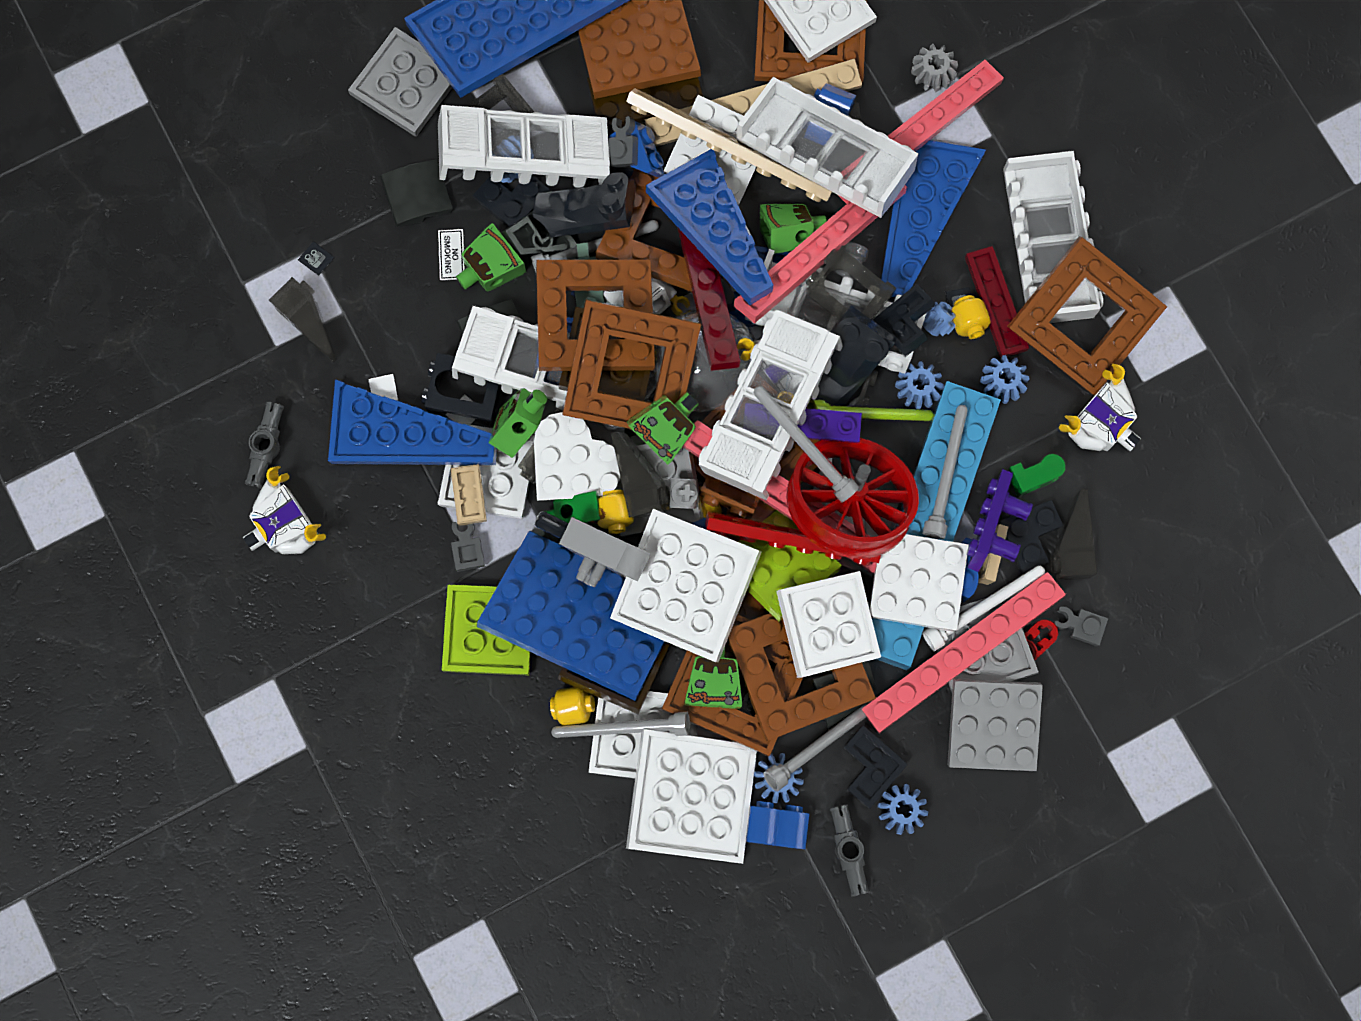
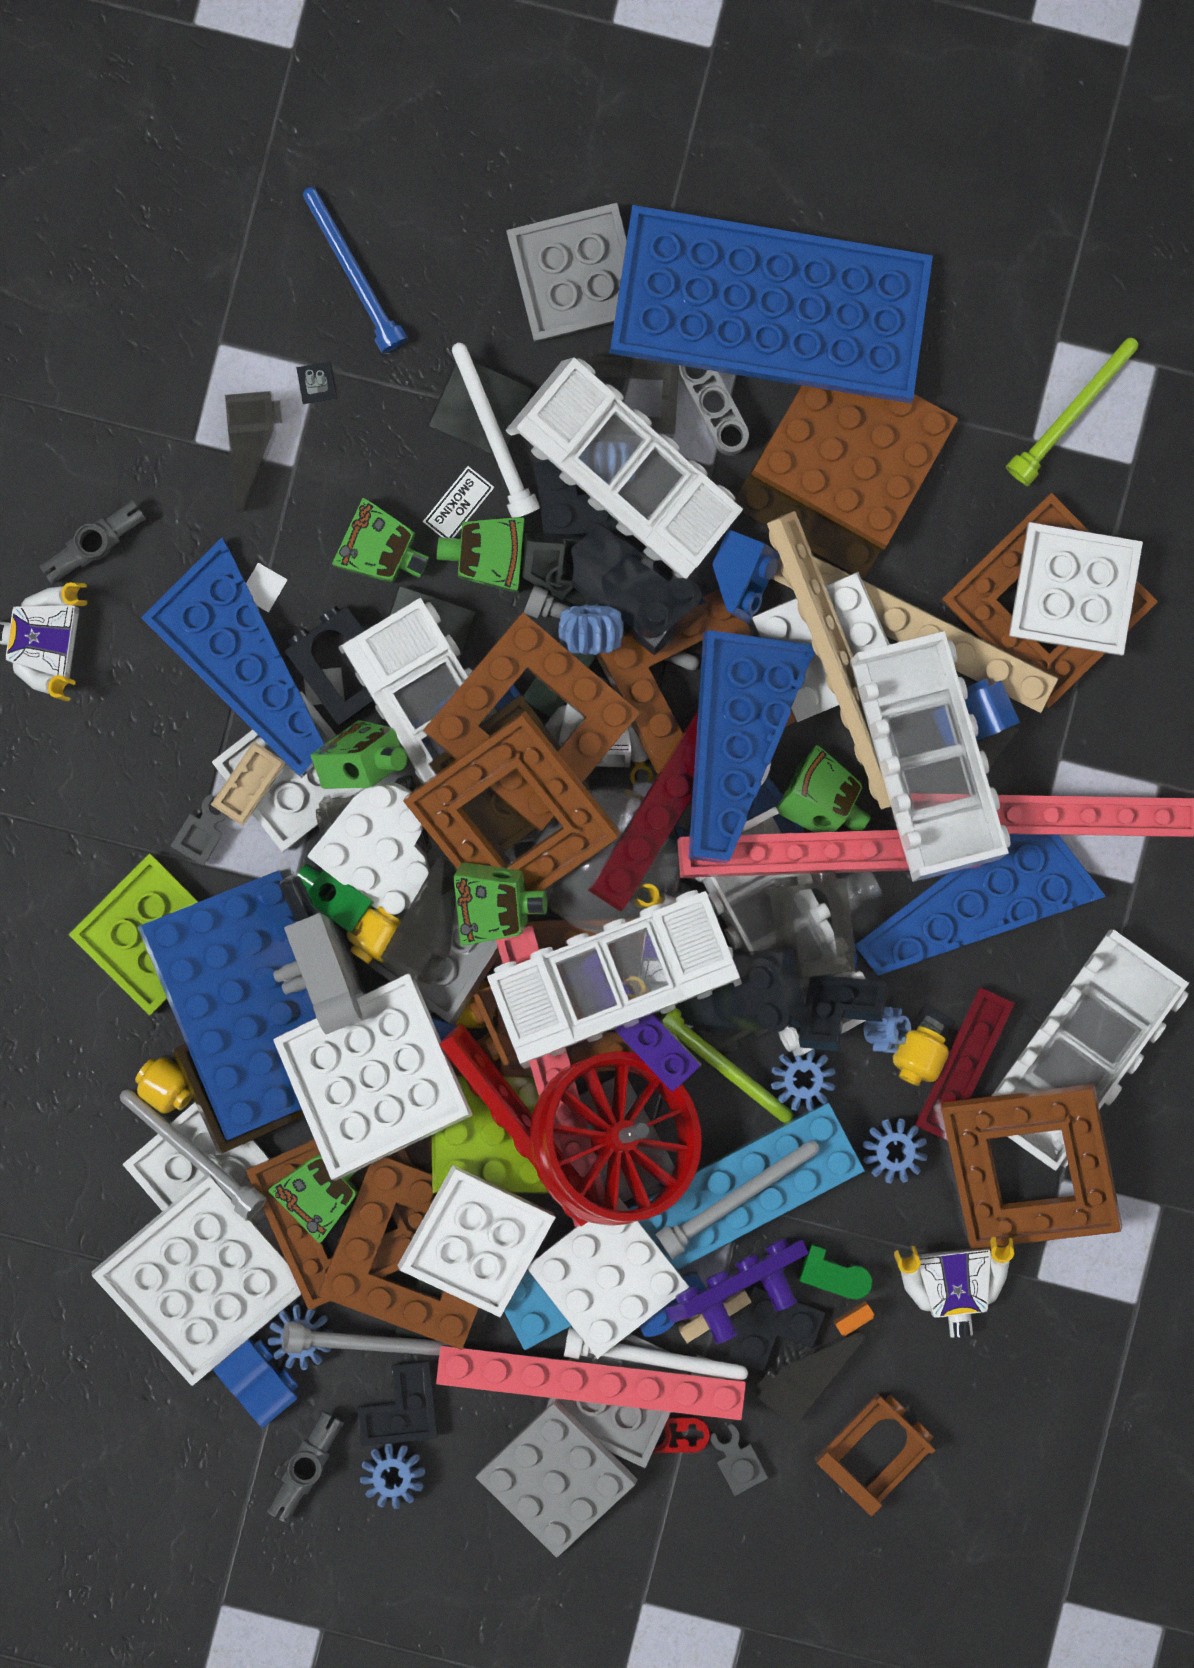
camera: 40 degrees right, 10 degrees up
(333, 197) = (387, 332): none -> blue piece
(426, 309) = (378, 546): none -> torso
(481, 219) = (520, 499): none -> white piece
(550, 91) = (715, 422): none -> light grey beam
(582, 240) = (590, 629): none -> medium blue gear
(623, 147) = (728, 559): dark grey plate -> none
(683, 493) = (453, 984): light grey axle -> none
(843, 486) = (607, 1128): light grey piece -> none
(934, 67) = (1151, 757): light grey gear -> none
(1070, 488) = (854, 1318): none -> orange tile
(1169, 527) = (915, 1449): none -> dark orange panel

